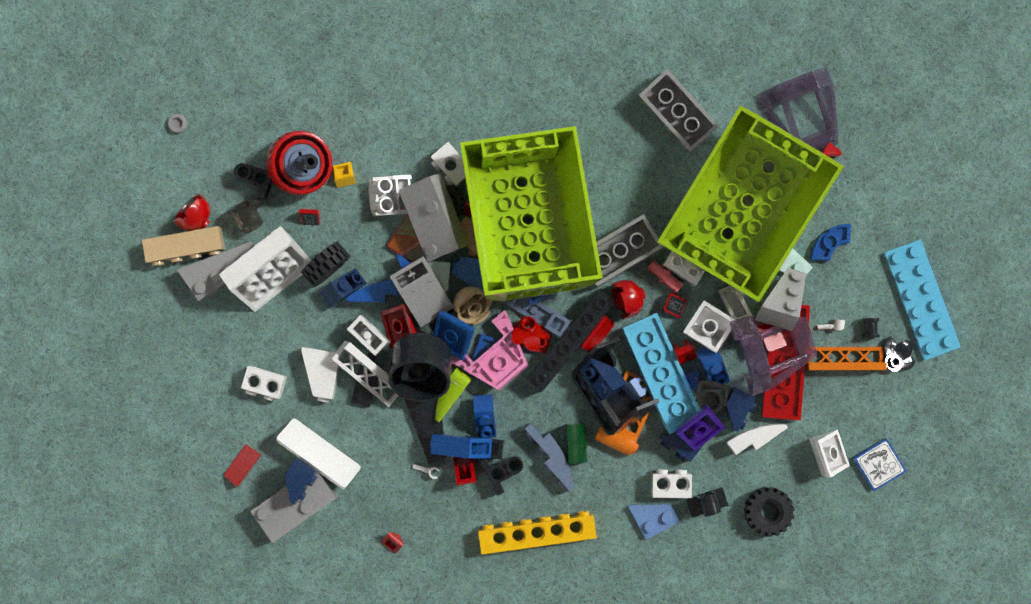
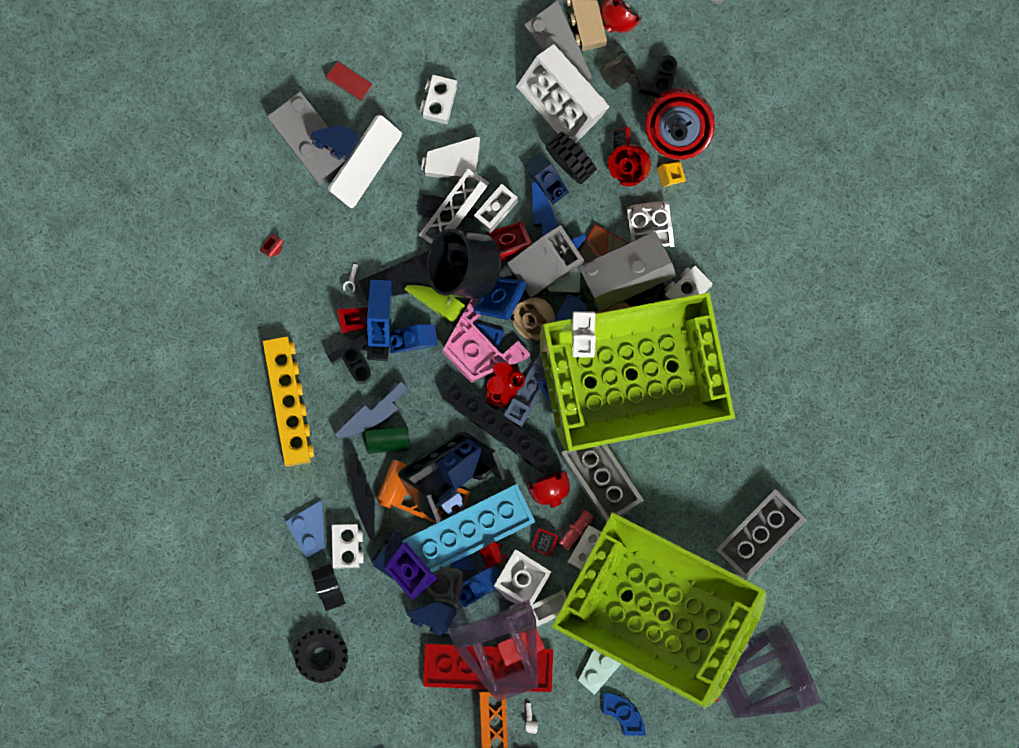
camera: 85 degrees right, 5 degrees down
(334, 211) = (629, 164): none -> red cylinder
(495, 259) = (583, 334): none -> white slope
(598, 334) = (510, 459): red slope -> none
(634, 466) = (364, 503): none -> black slope
(754, 436) = (403, 636): white slope -> none
(784, 302) = (554, 658): light grey wedge -> none
(829, 453) = (388, 722): white slope -> none
(831, 151) = (725, 707): red slope -> none

